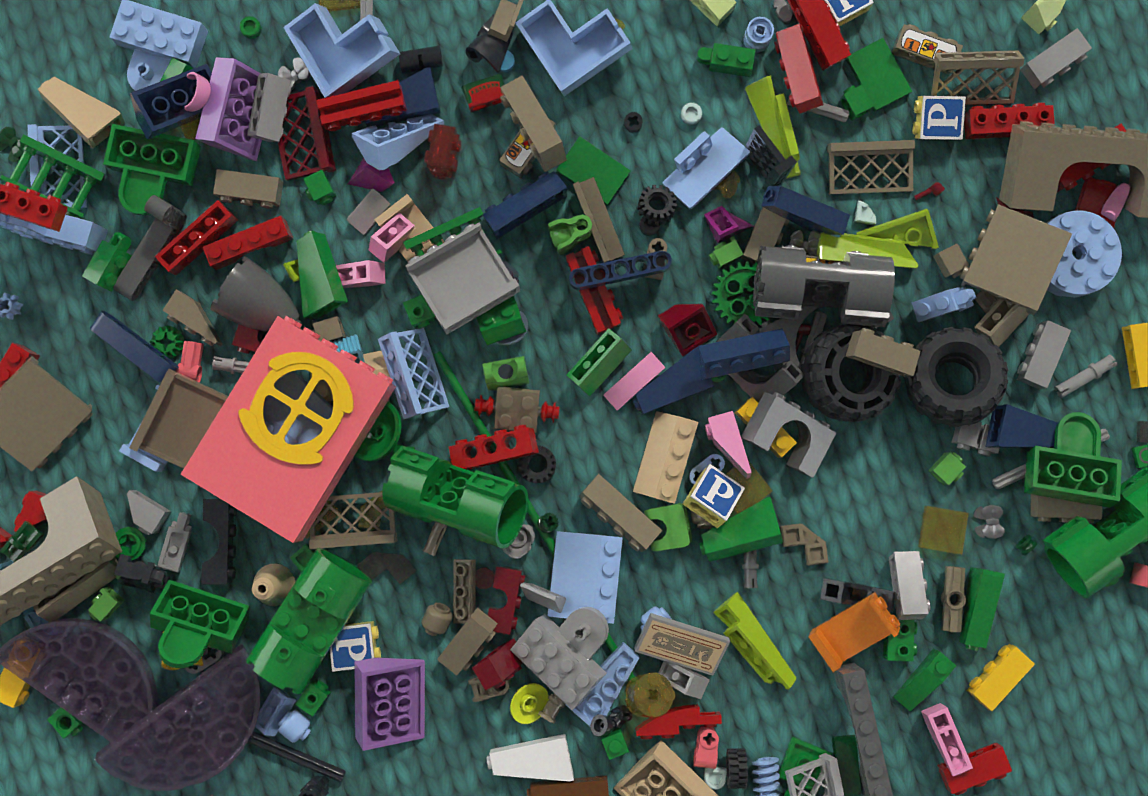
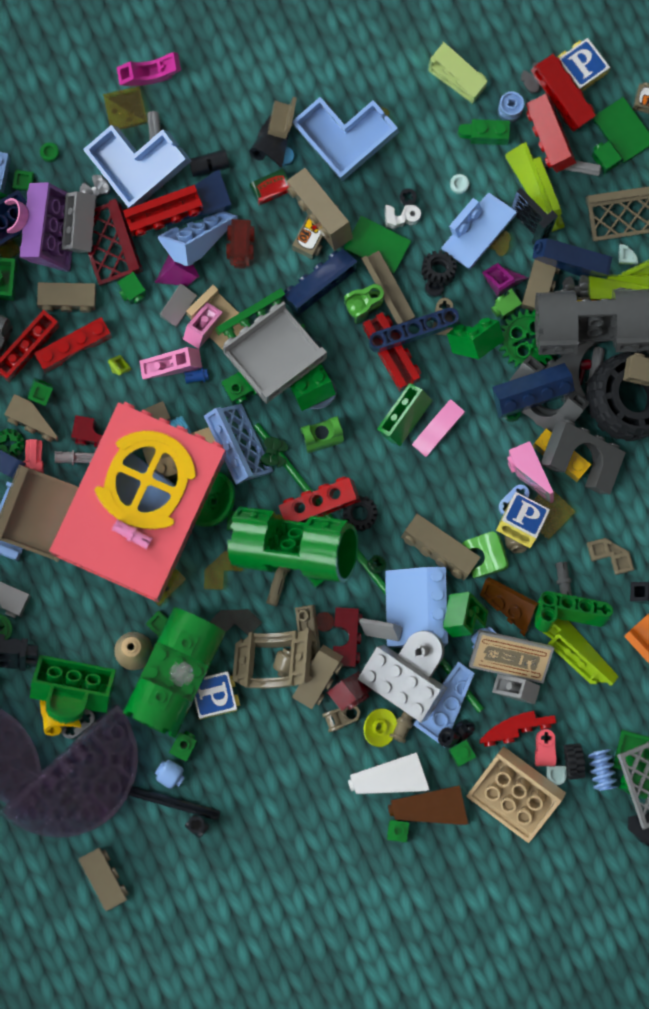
camera: 15 degrees left, 5 degrees down
(175, 543) = (40, 623): light grey hinge -> none
(205, 289) = (40, 391): none -> green brick
(217, 50) = (22, 180): none -> green tile
(220, 568) = (81, 641): black arch -> none
(253, 298) = (87, 394): dark grey cylinder -> none
(272, 467) = (131, 534): none -> bright pink pin
(273, 710) = (147, 765): light blue slope -> none
(313, 627) = (181, 674): none -> clear gear
(318, 276) = (141, 368): green slope -> none
(358, 537) = (205, 598): dark tan fence -> none
(379, 292) = (197, 375): none -> blue pin
(389, 701) = (253, 739): medium lavender slope -> none
(448, 623) = (300, 658): none -> dark tan wedge
(451, 379) = (273, 446): none -> dark green piece
(516, 408) = (335, 463): dark tan plate -> none
(522, 543) = (353, 586): light grey hair -> none
(632, 142) = (410, 216): none -> white leg
(634, 594) = (464, 615): none -> green brick
(647, 685) = (487, 705): clear yellow brick -> none
(665, 457) = (475, 492): tan slope -> none
(674, 384) = (474, 427): dark blue slope -> none
(687, 290) = (475, 340): none -> green brick
(687, 326) = (480, 374): dark red slope -> none
(693, 588) = (512, 604): none -> reddish brown wing
(744, 532) = (553, 551): green slope -> none
(781, 605) = (570, 608): none -> green beam

